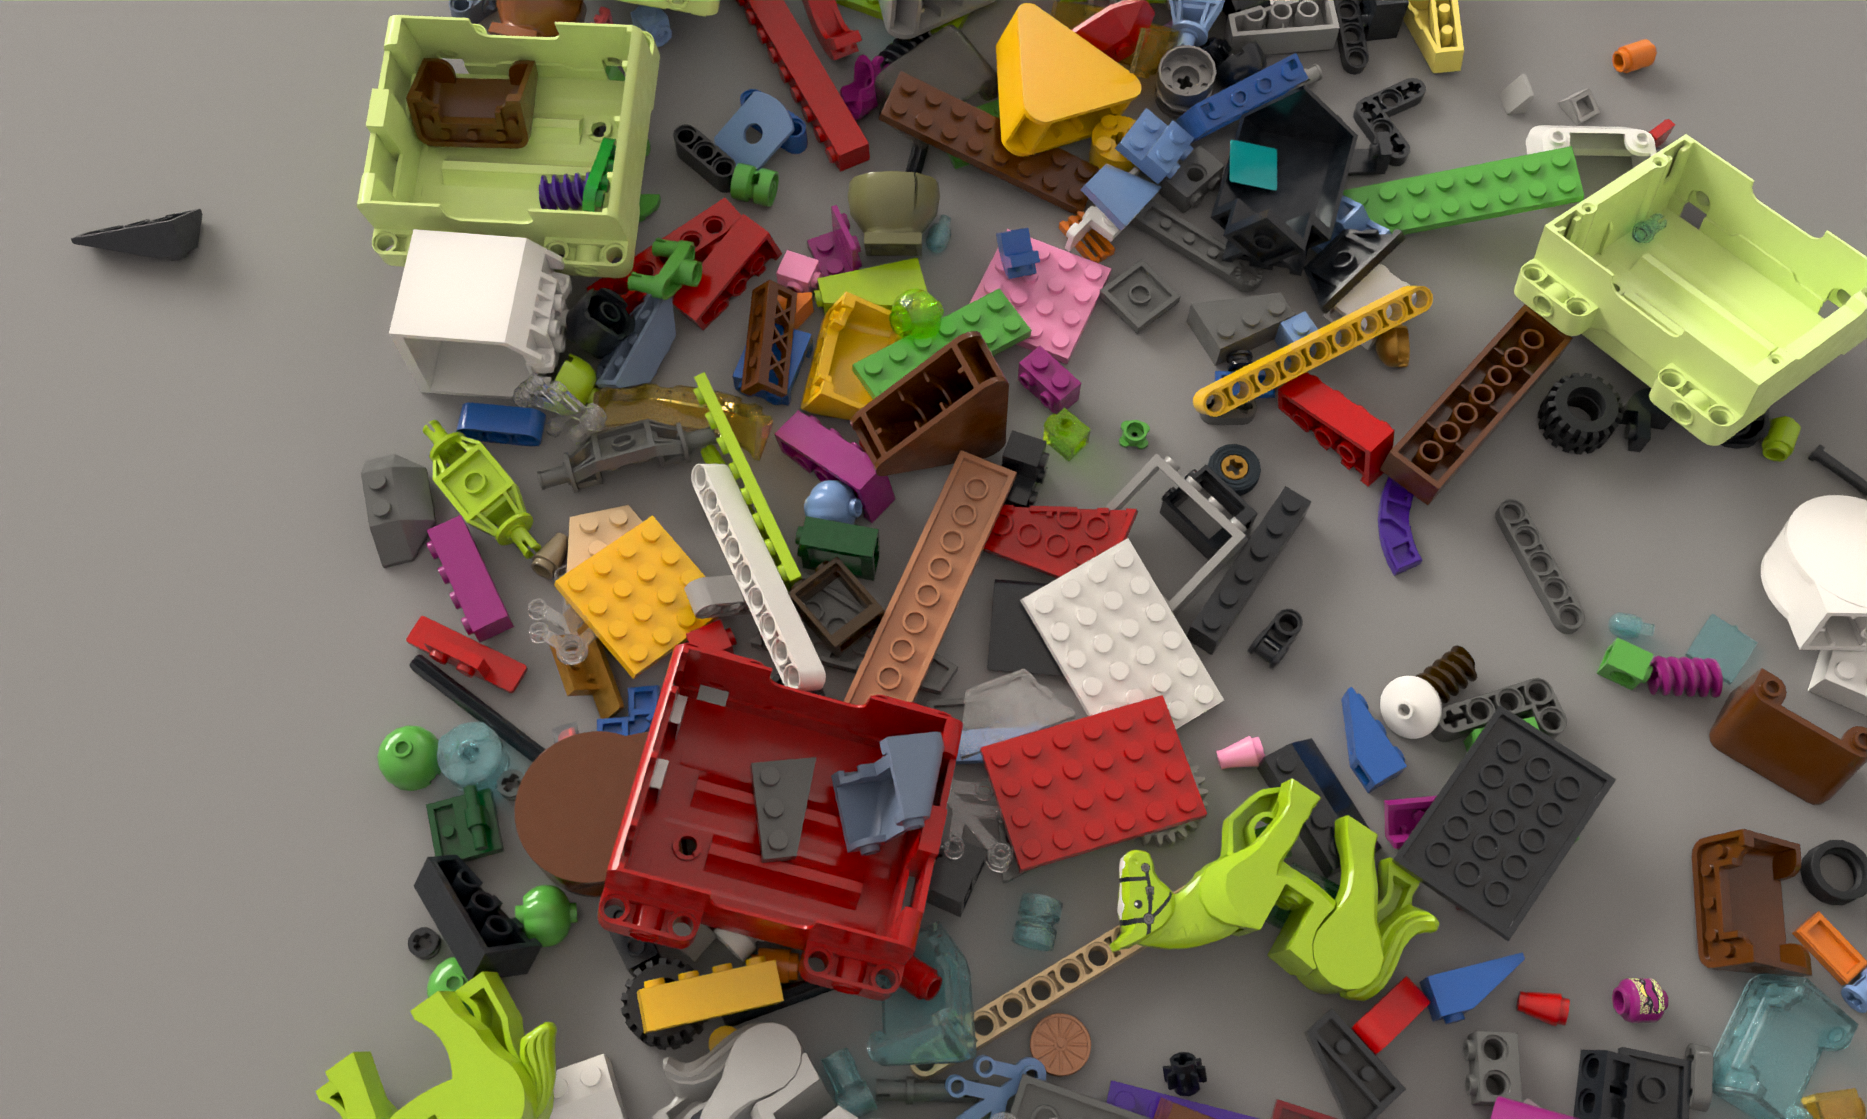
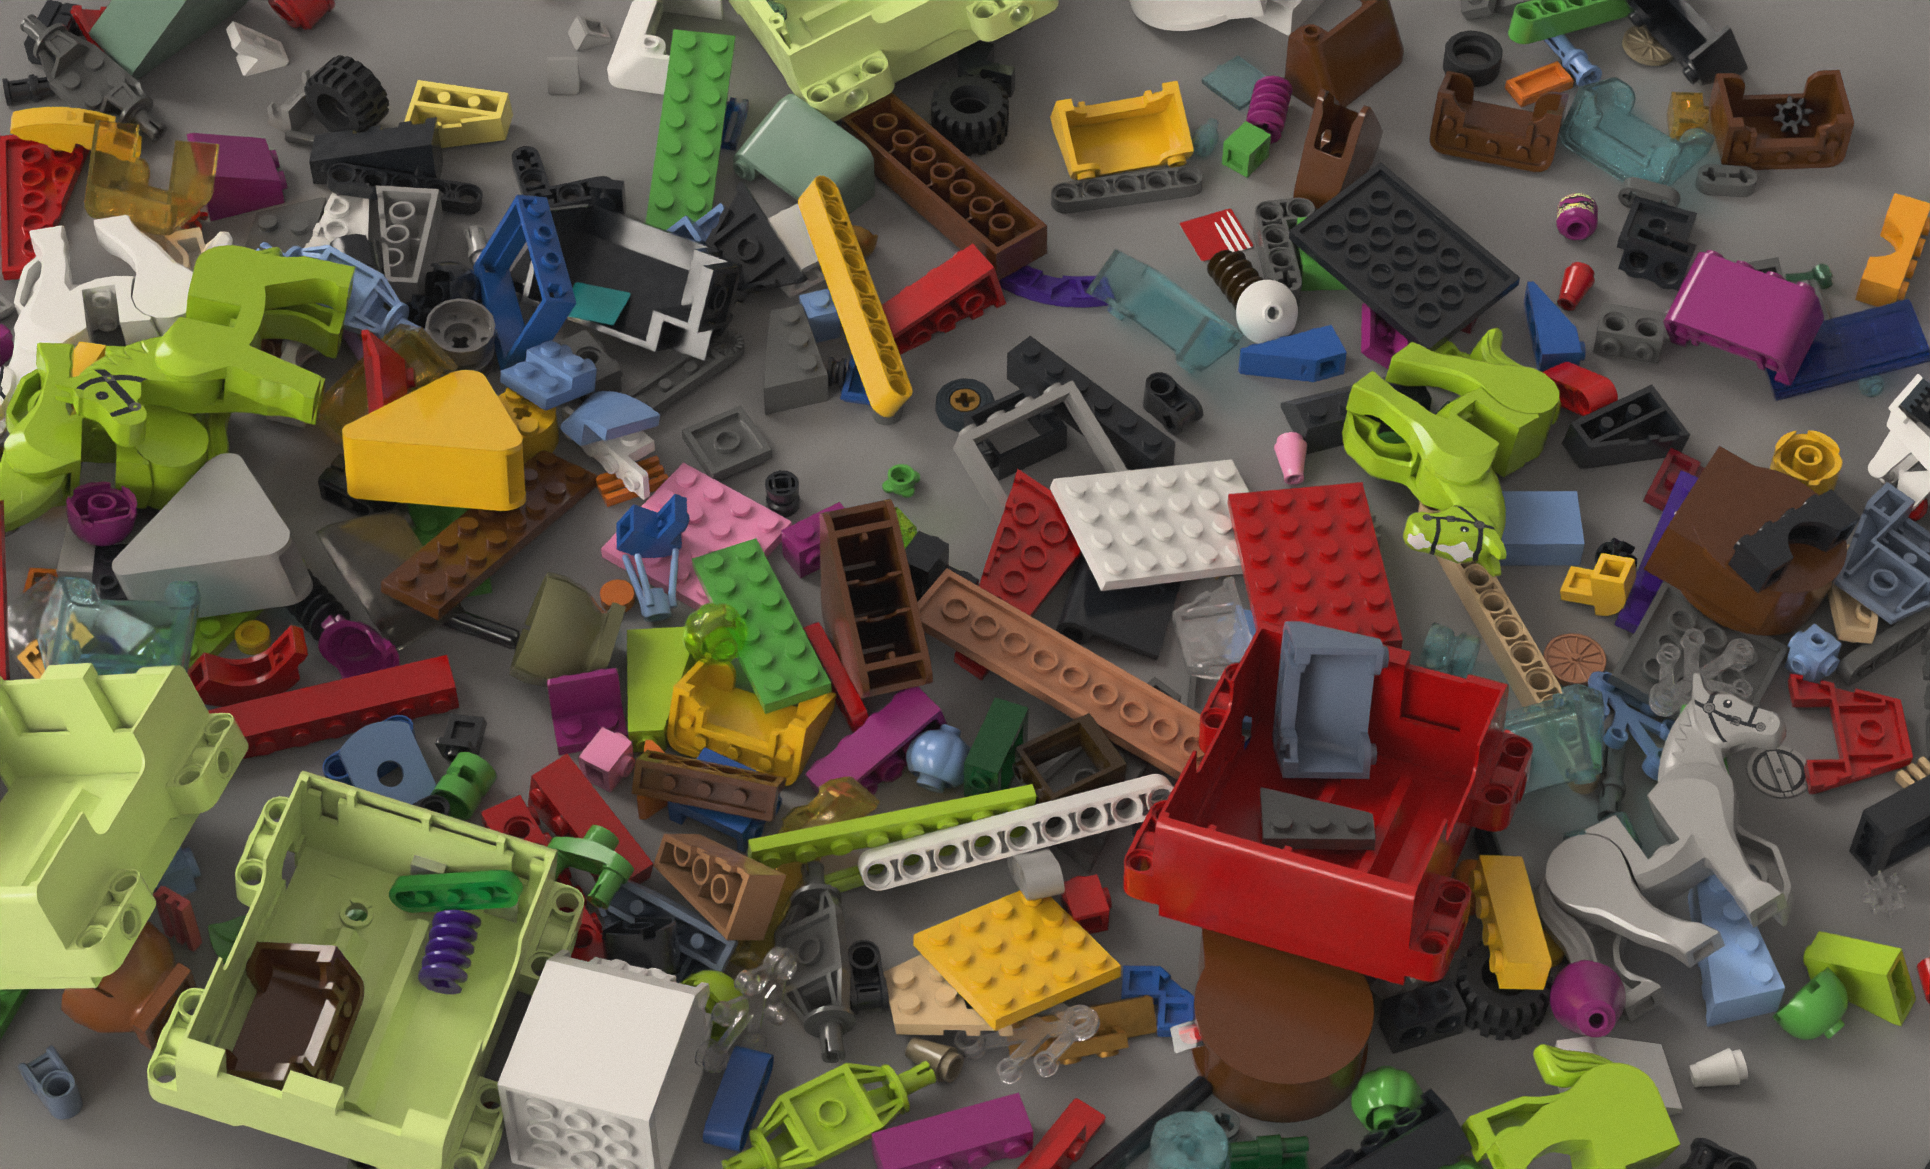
camera: 80 degrees left, 15 degrees down
(615, 491) = (867, 982): none -> black piece
(630, 1077) = (1587, 998): none -> magenta cone
(672, 364) = (721, 884): none -> medium nougat wedge
(800, 176) = (461, 735): none -> black bracket
(874, 27) = (253, 637): none -> yellow tile
(958, 275) = (653, 602): none -> light blue plant
(965, 251) = (618, 592): none -> orange tile
(1093, 345) = (782, 493): none -> black wheel
(1146, 1058) = (1604, 587): none -> yellow brick
(1209, 992) = (1542, 528): none -> medium blue brick
(1393, 624) = (1164, 310): none -> clear light blue windscreen
(1468, 292) = (800, 144): none -> sand green windscreen
(1507, 225) = (732, 106): none -> tile
(1511, 654) = (1216, 233): none -> red sticker
(1600, 545) = (1123, 133): none -> yellow windscreen
(1637, 753) = (1343, 152): none -> reddish brown piece

